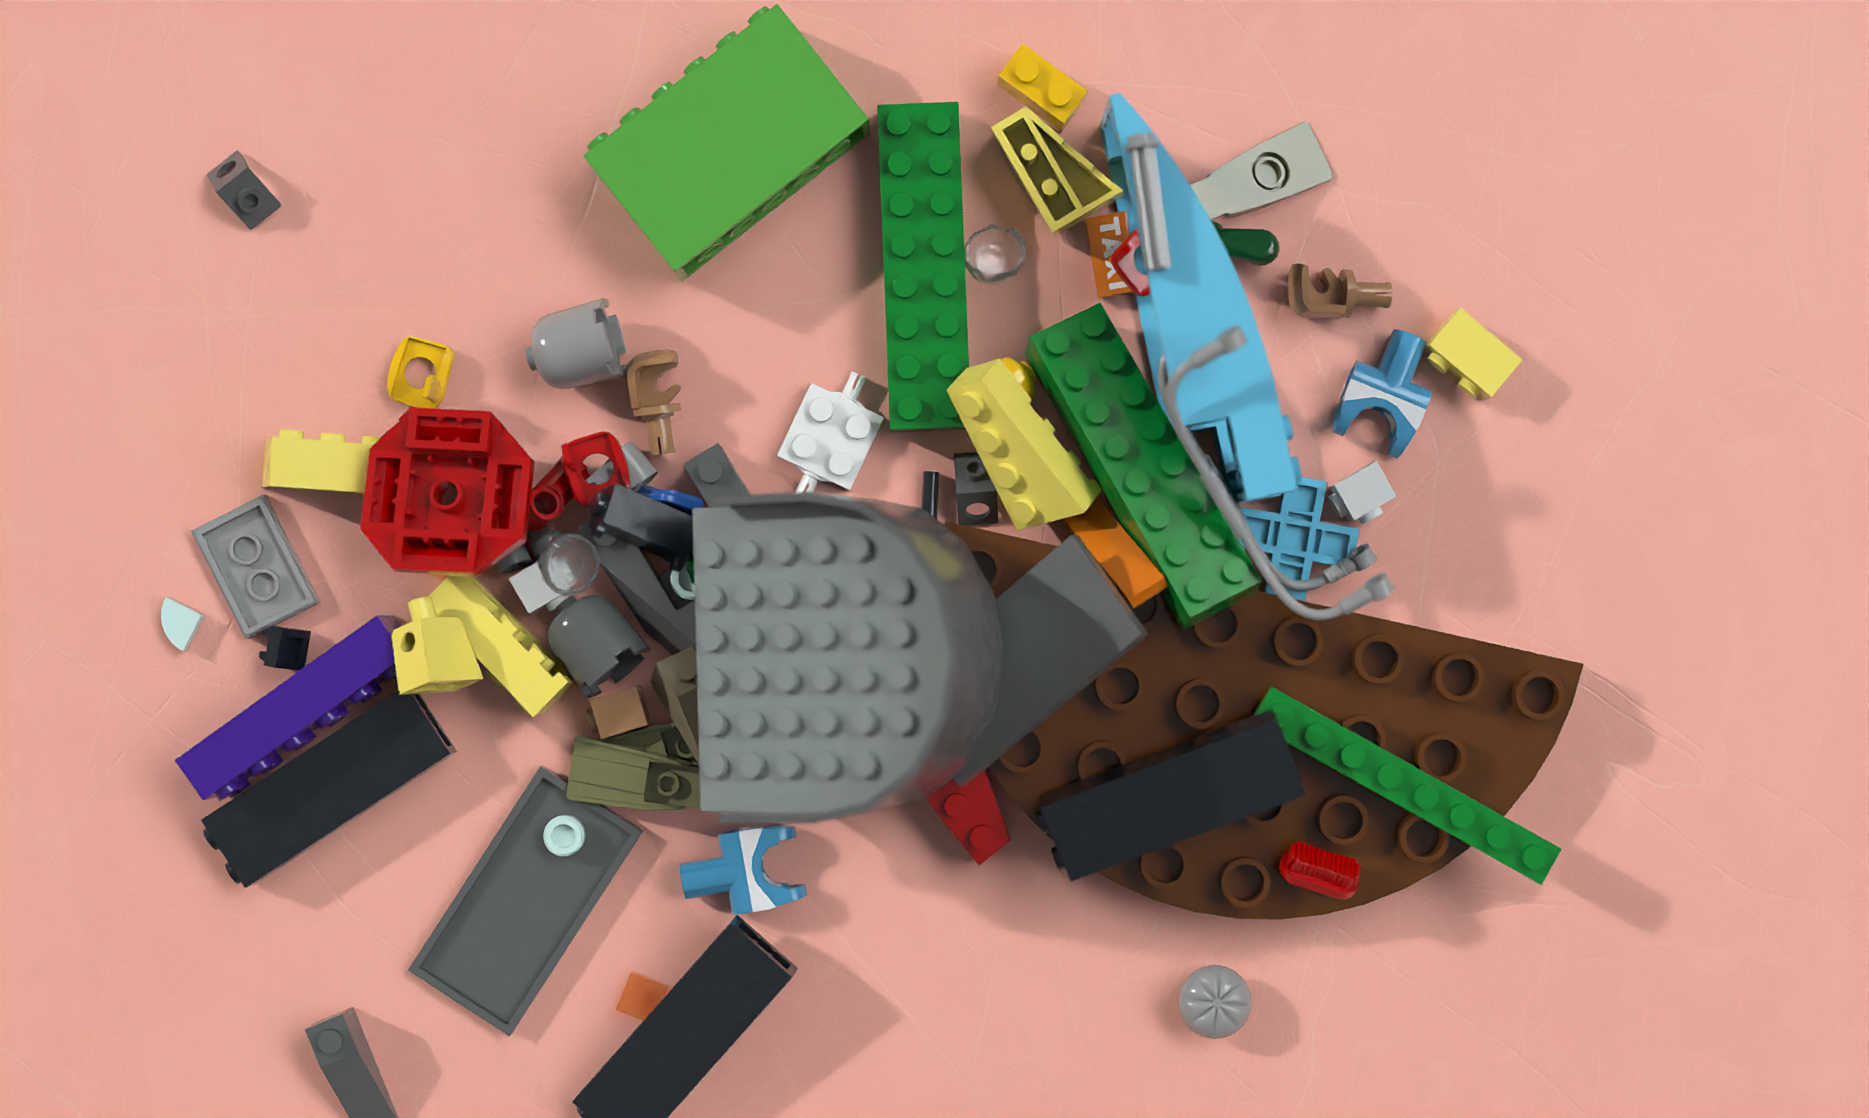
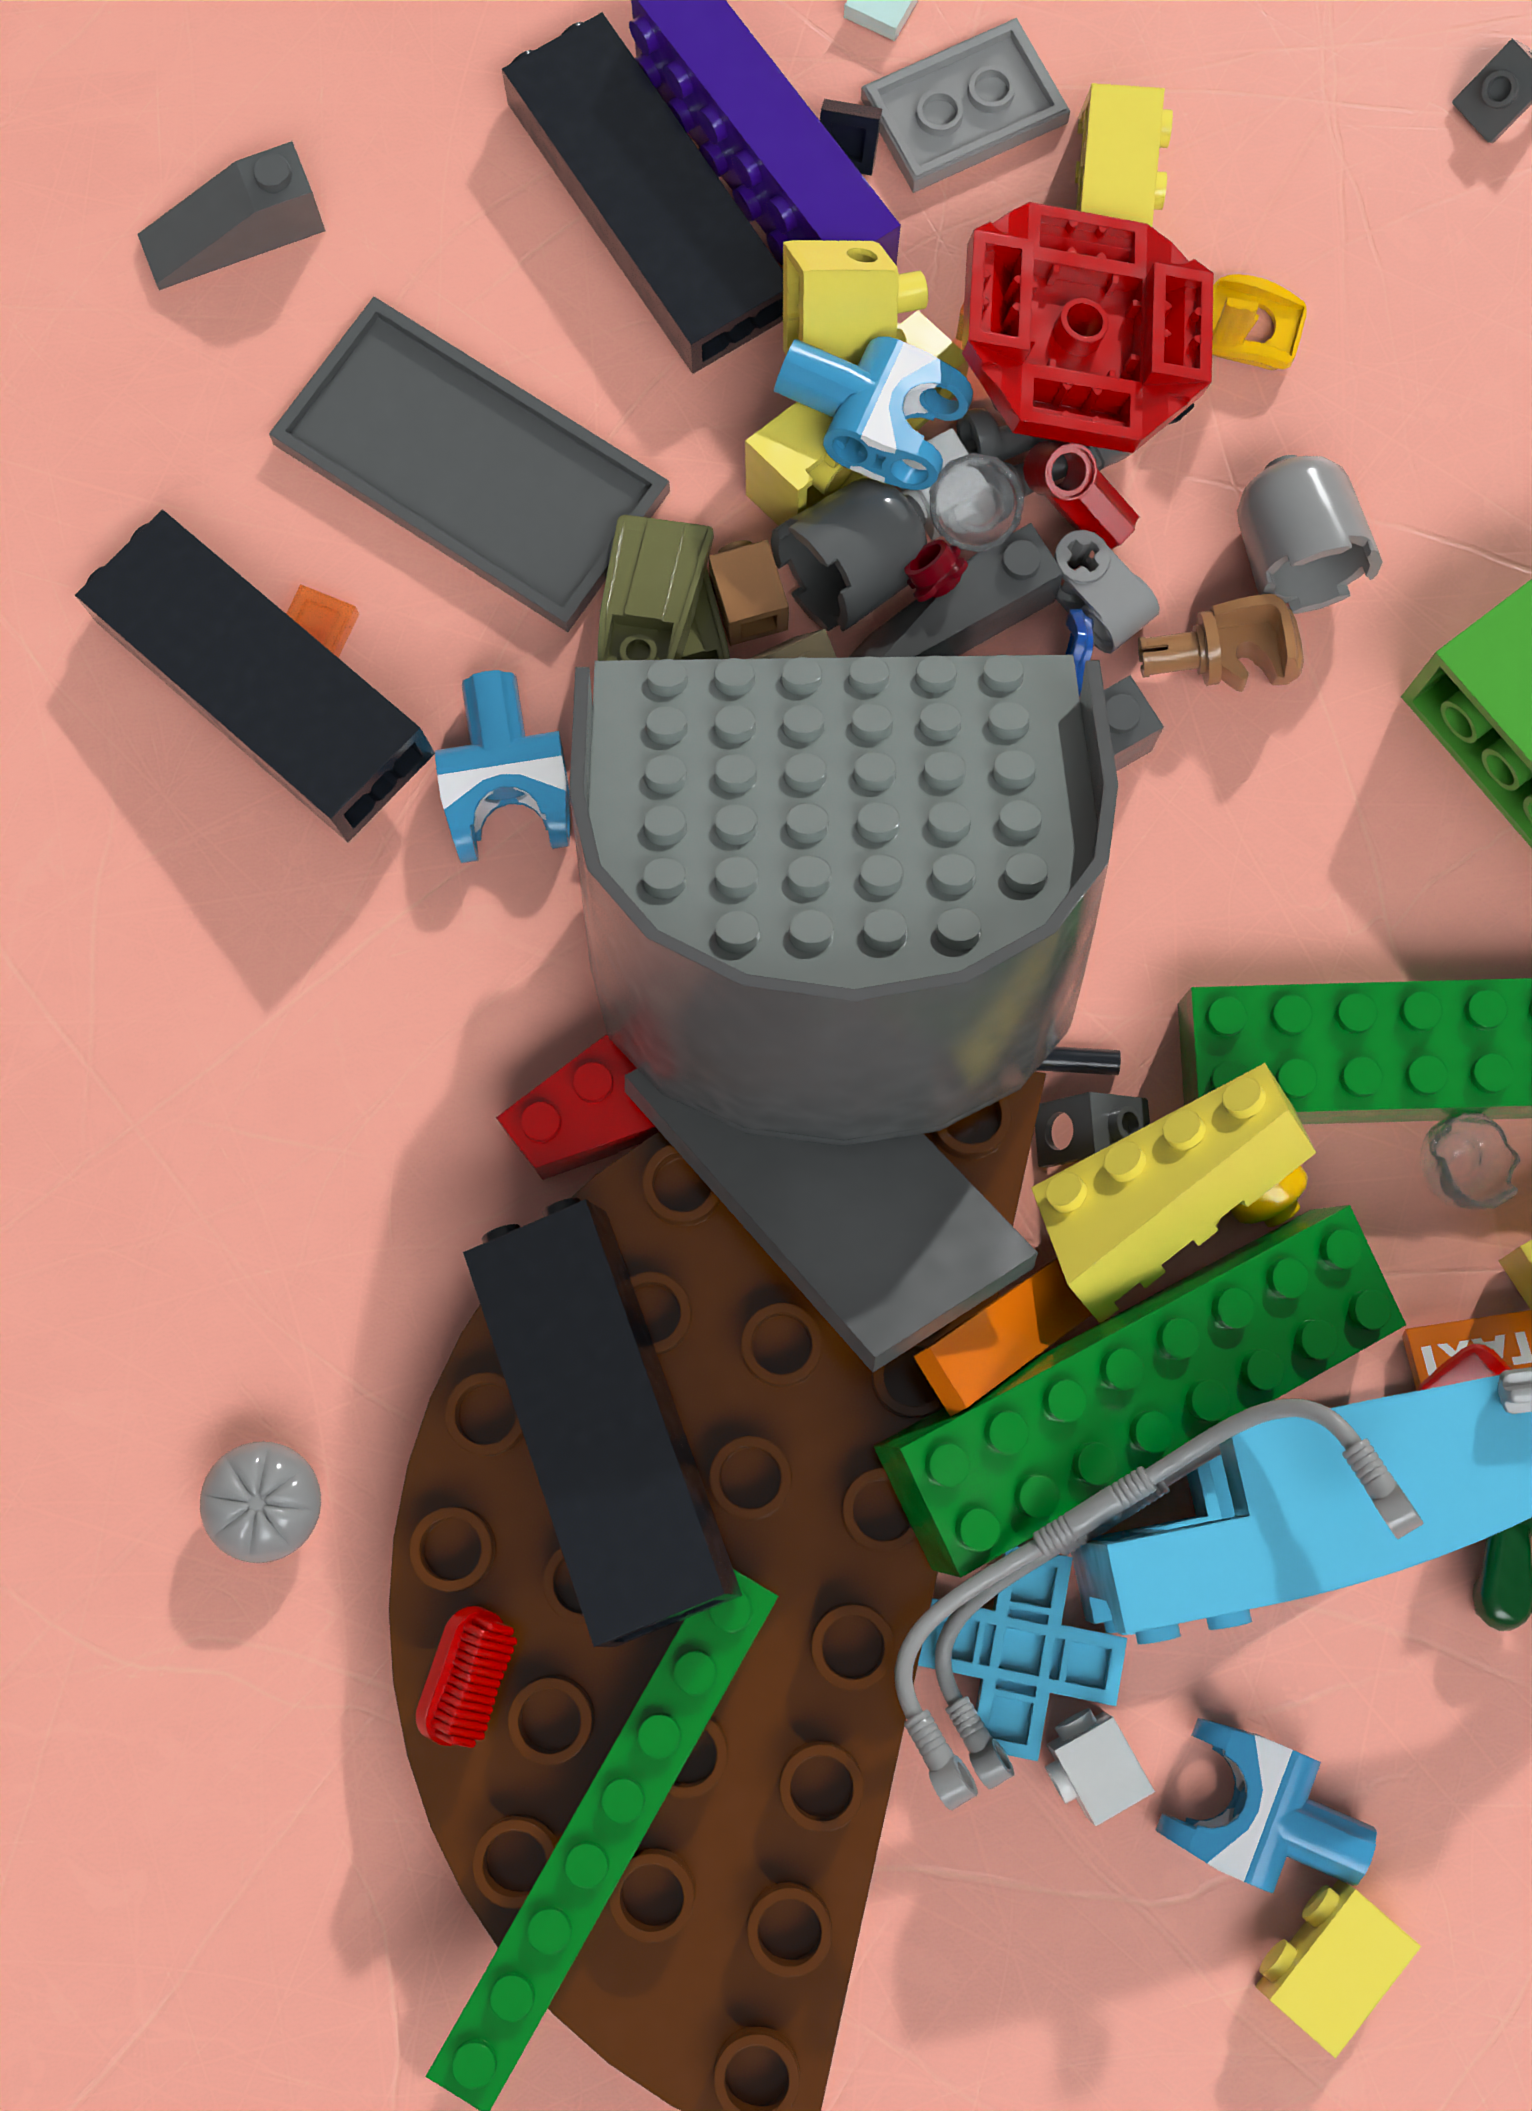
camera: 95 degrees right, 10 degrees down
(506, 635) = (874, 403): none -> dark azure connector
(564, 835) = (564, 512): light aqua tile -> none
(579, 449) = (1133, 514): red piece -> none
(614, 590) = (935, 570): none -> dark red plate
(642, 524) = (1046, 593): black brick -> none
(830, 435) = (1176, 909): white plate -> none
(1338, 294) = (1428, 1732): medium nougat piece -> none

